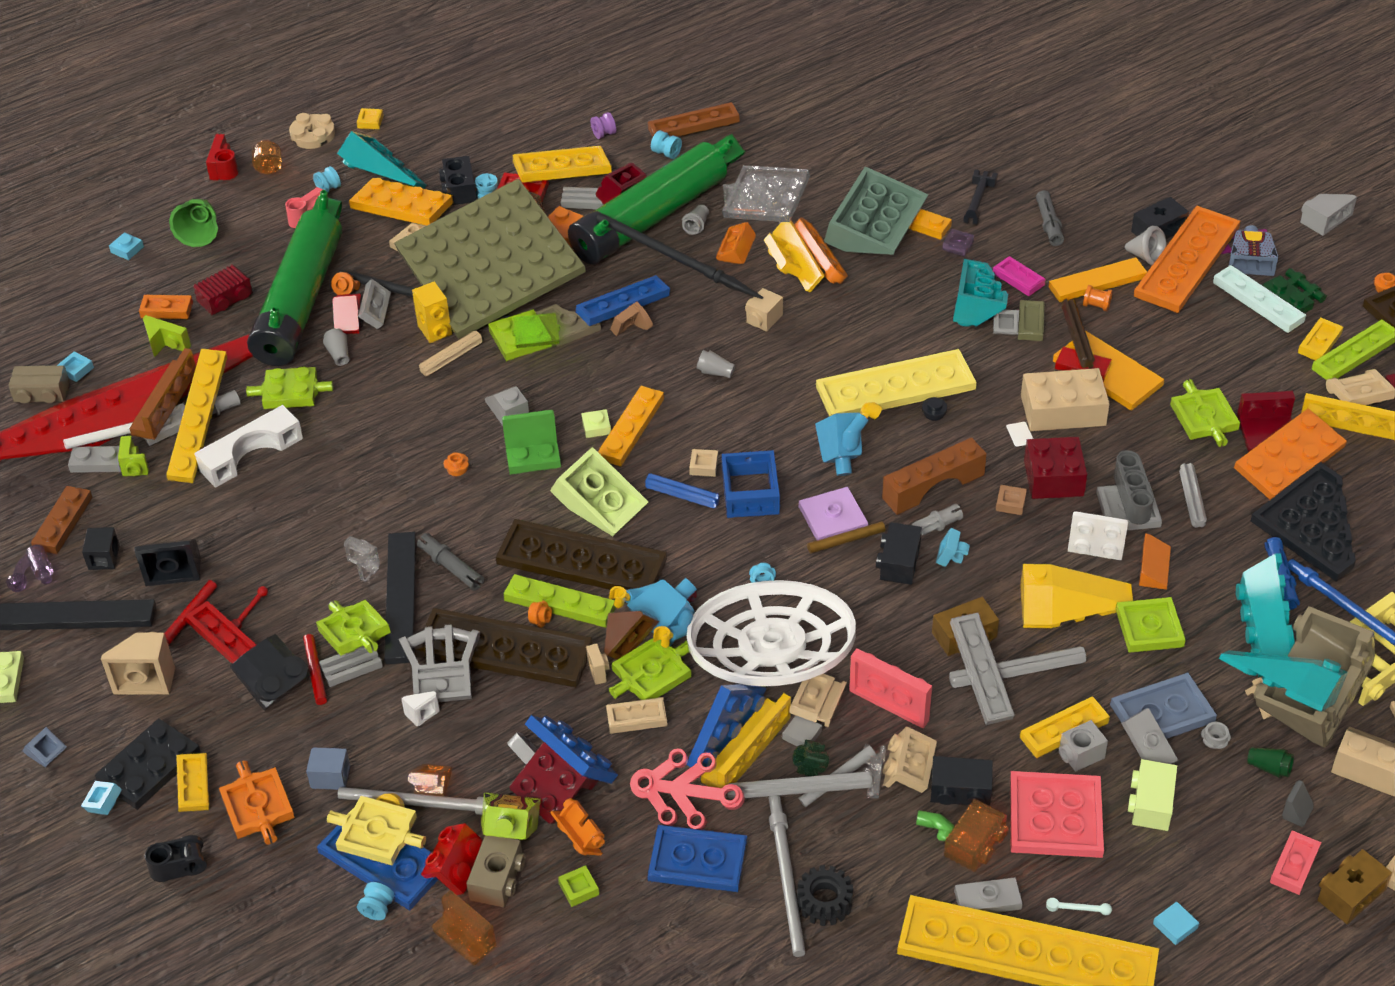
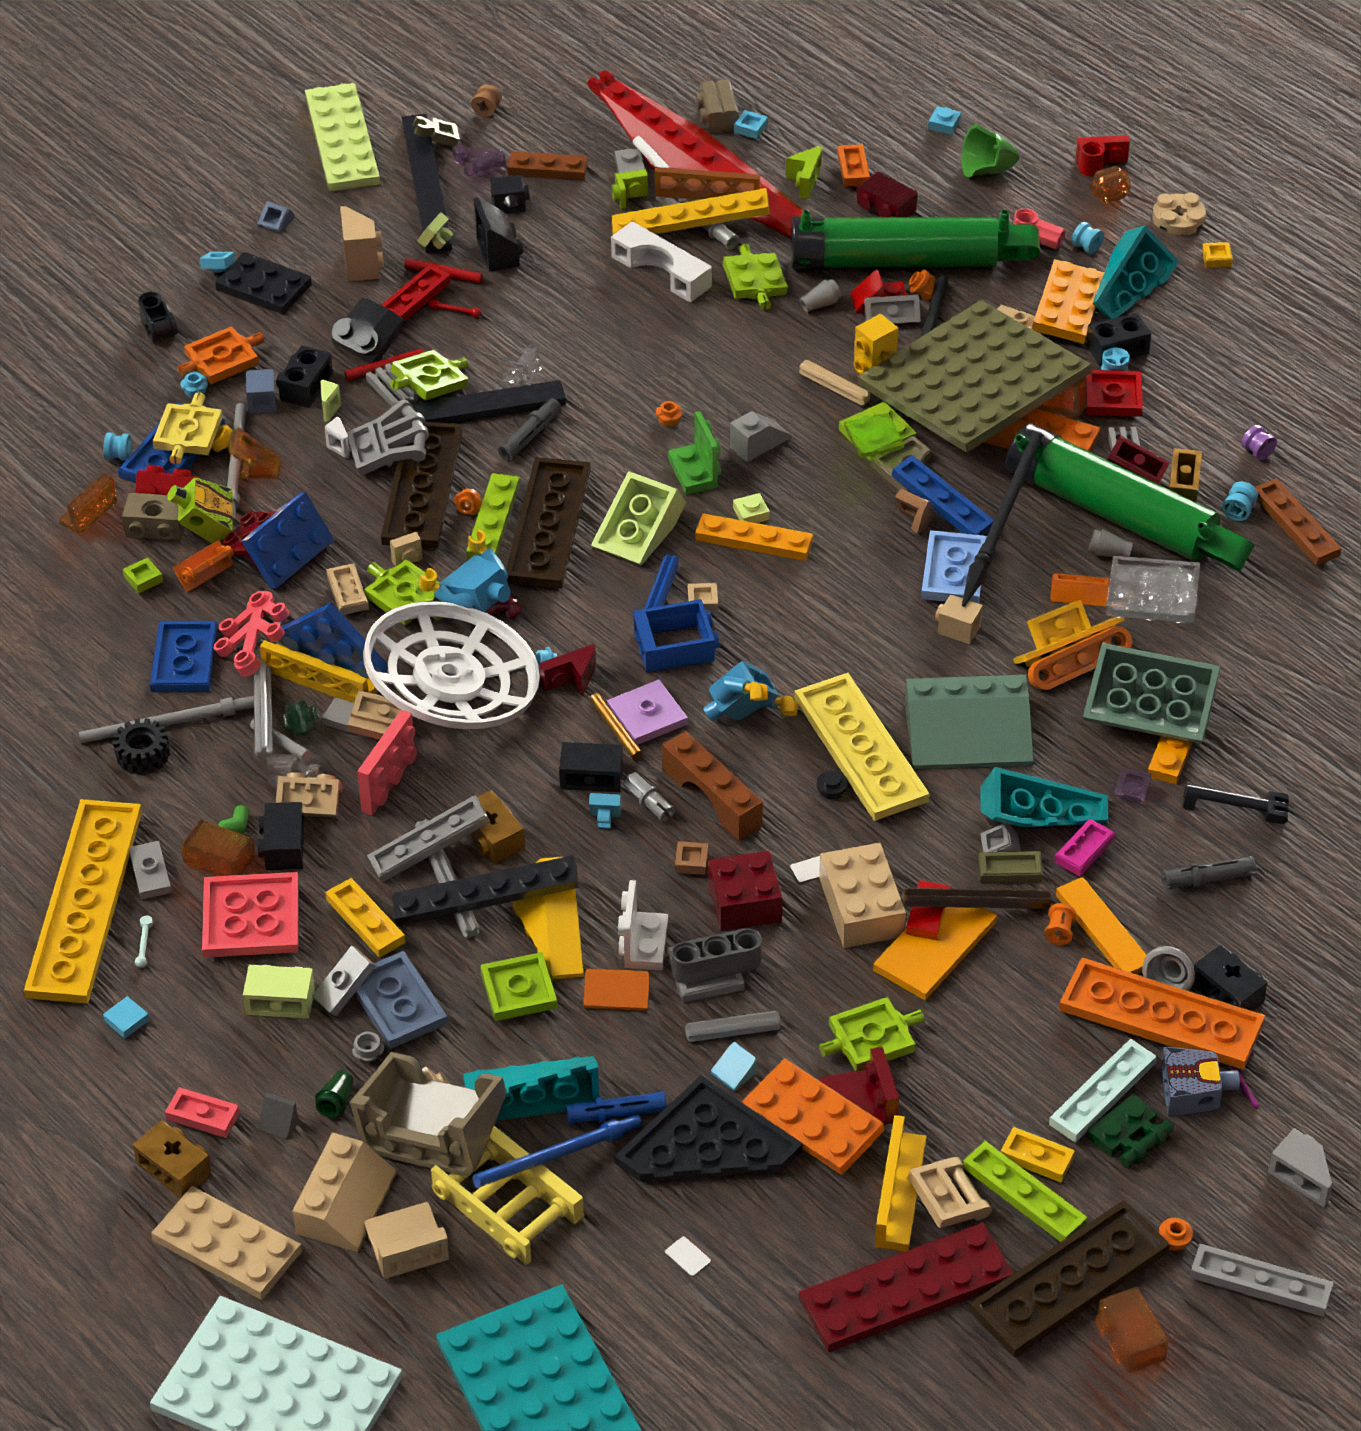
camera: 80 degrees right, 0 degrees up
(142, 604) = (435, 232): none -> yellowish green tile
(192, 782) = (240, 310): yellow plate -> none
(294, 836) = (194, 383): none -> medium azure plate
(317, 727) = (303, 375): none -> black brick
(360, 712) = (330, 399): none -> yellowish green slope
(561, 163) = (1172, 414): yellow tile -> none
(627, 631) = (441, 556): reddish brown slope -> none
(645, 158) = (1185, 473): none -> pearl gold brick
(701, 307) = (948, 565): none -> light blue plate
(714, 364) = (859, 587): light grey cone -> none
(781, 553) = (570, 667): none -> dark red slope
(880, 320) = (969, 722): none -> sand green slope
(1054, 630) = (485, 890): none -> black plate
(1083, 745) = (338, 930): light grey brick -> none
(1236, 497) = (735, 1067): none -> medium azure slope
(1306, 680) = (411, 1073): teal wedge -> none

